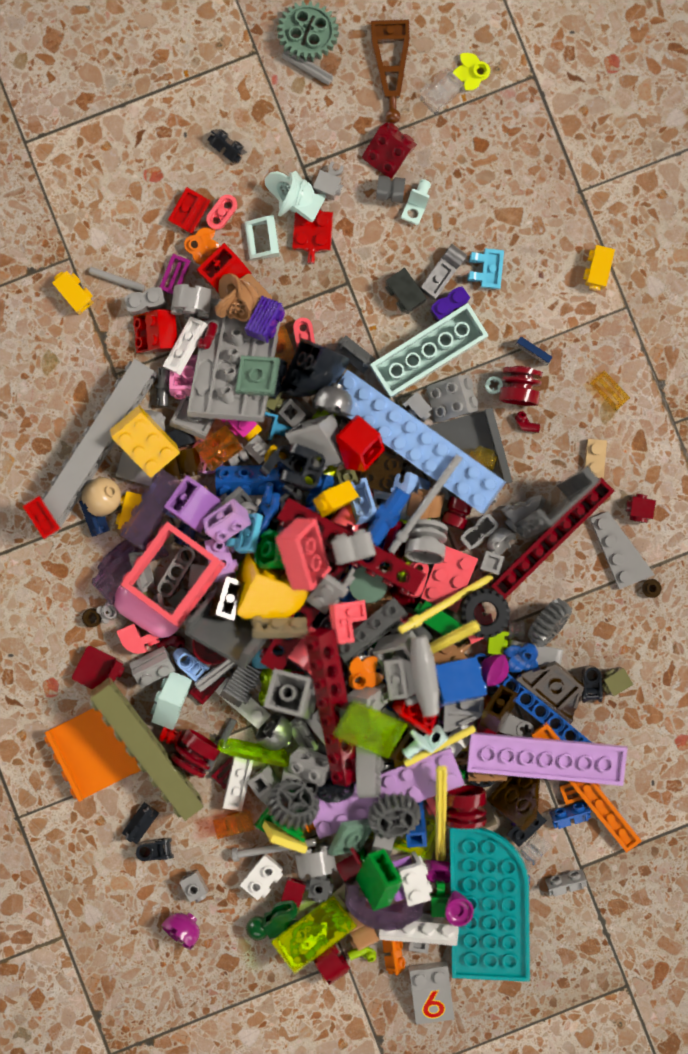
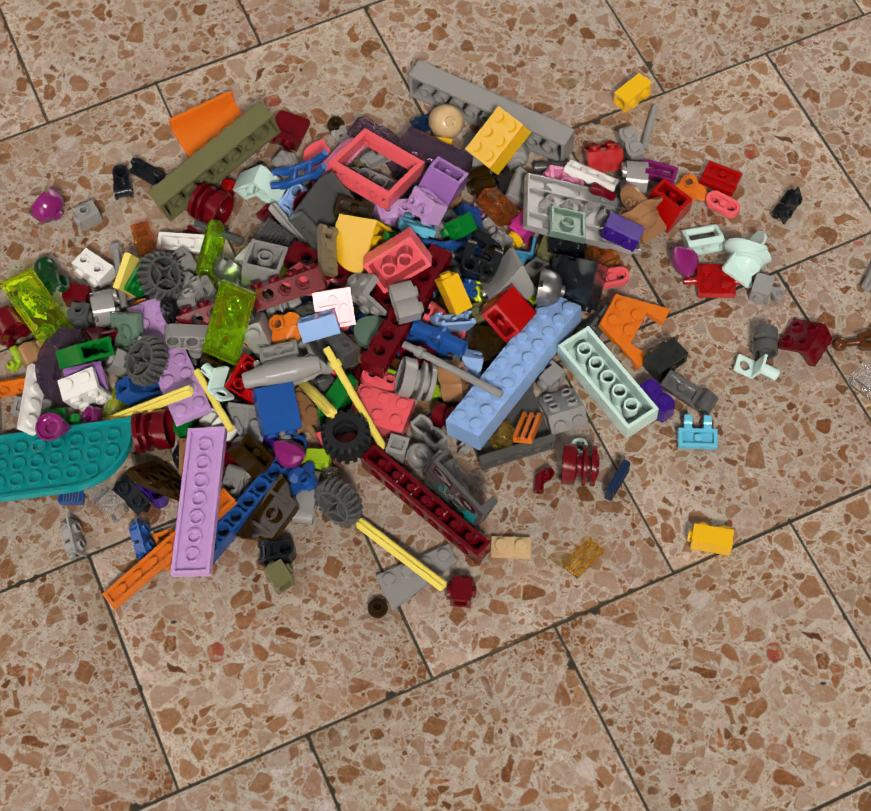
camera: 90 degrees right, 25 degrees down
(41, 517) = (423, 65): red plate -> none
(181, 646) = (292, 171): none -> blue piece
(255, 488) = (459, 226): none -> green brick
(292, 259) = (684, 260): none -> magenta piece
(359, 328) = (623, 321): none -> orange wing
(370, 637) = (319, 325): none -> light blue hinge
(460, 430) = (531, 417): none -> orange tile
(604, 562) = (401, 554): none -> light yellow axle

